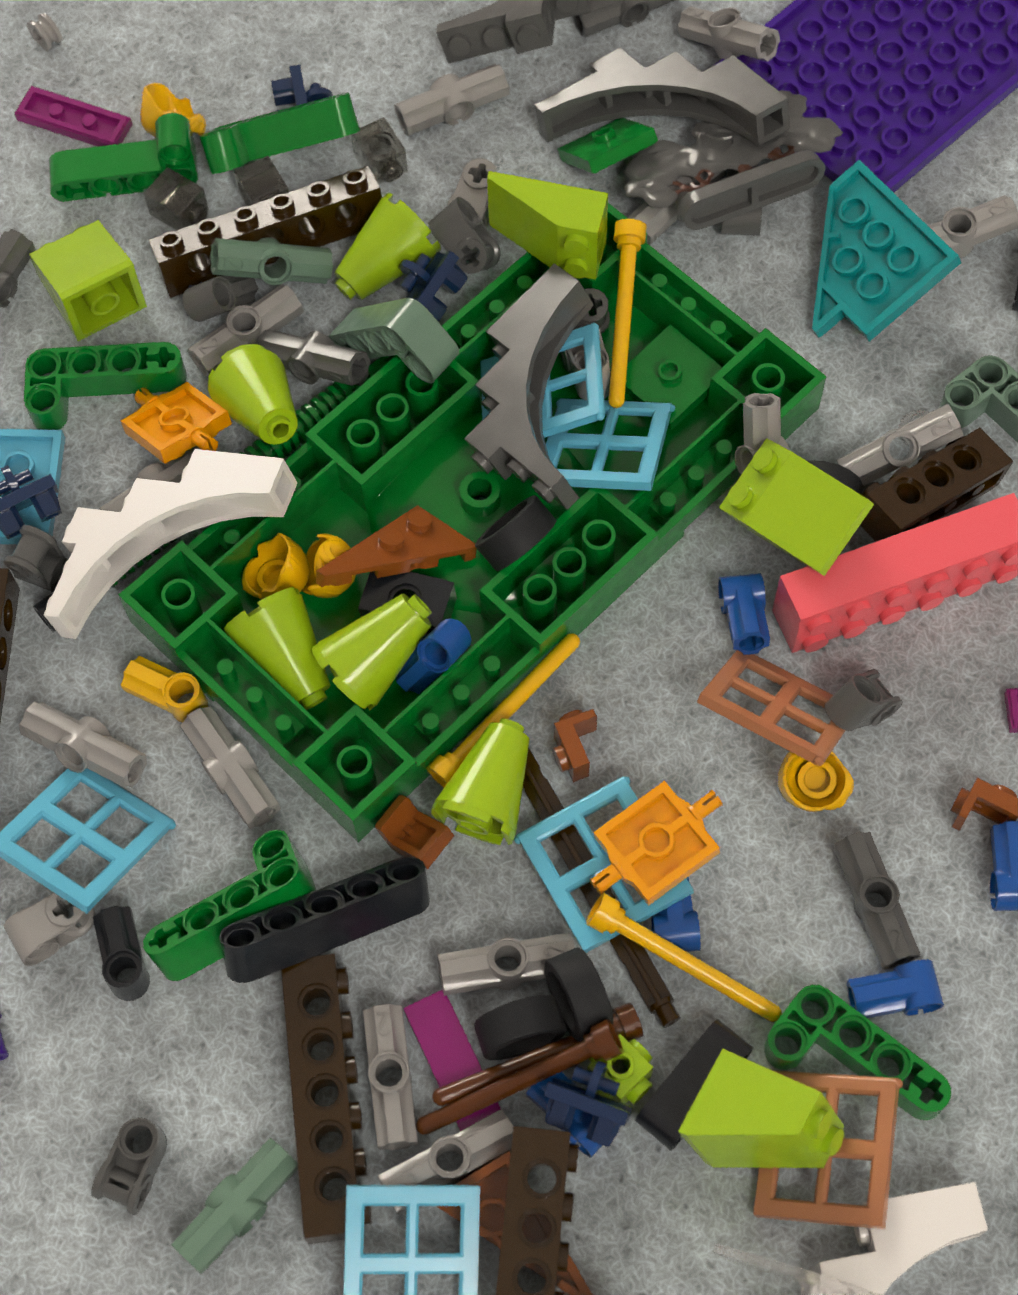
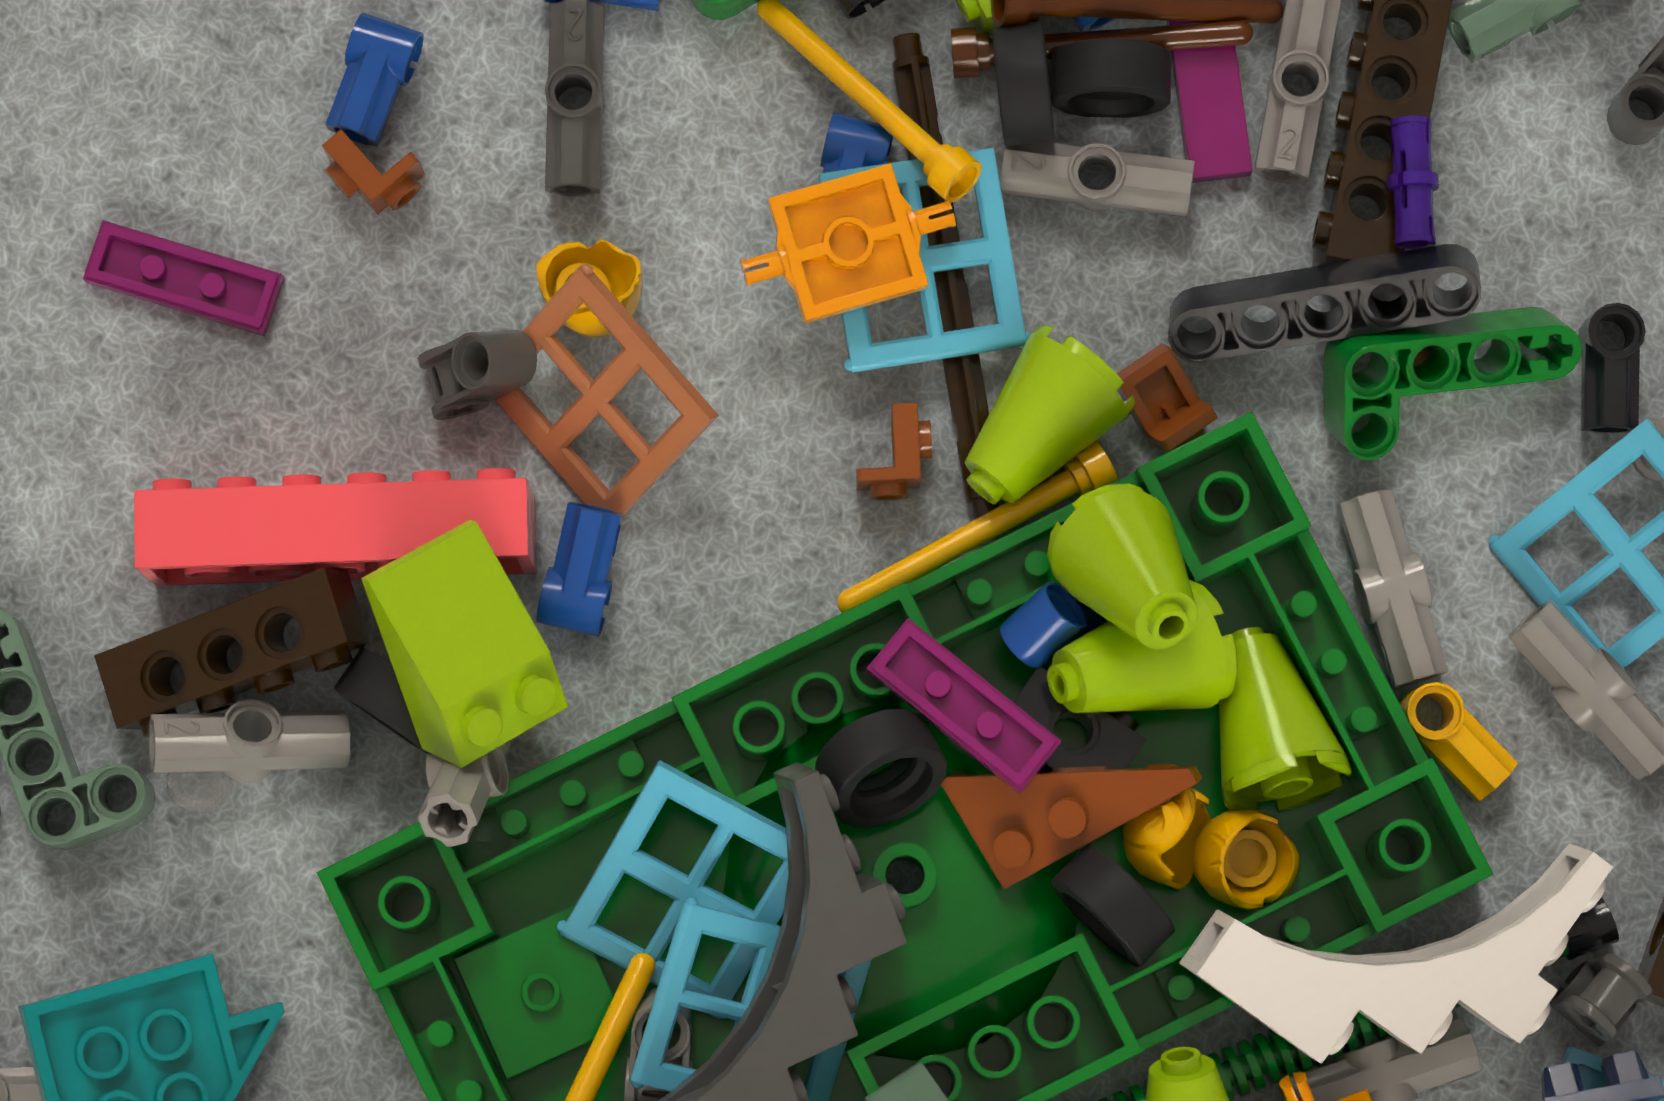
camera: 165 degrees left, 15 degrees up
(288, 1015) = (1412, 182): none -> dark purple pin
(347, 508) = (1113, 905): none -> black tyre
(399, 675) = (1126, 564): none -> lime cone
(477, 579) = (964, 706): none -> magenta tile

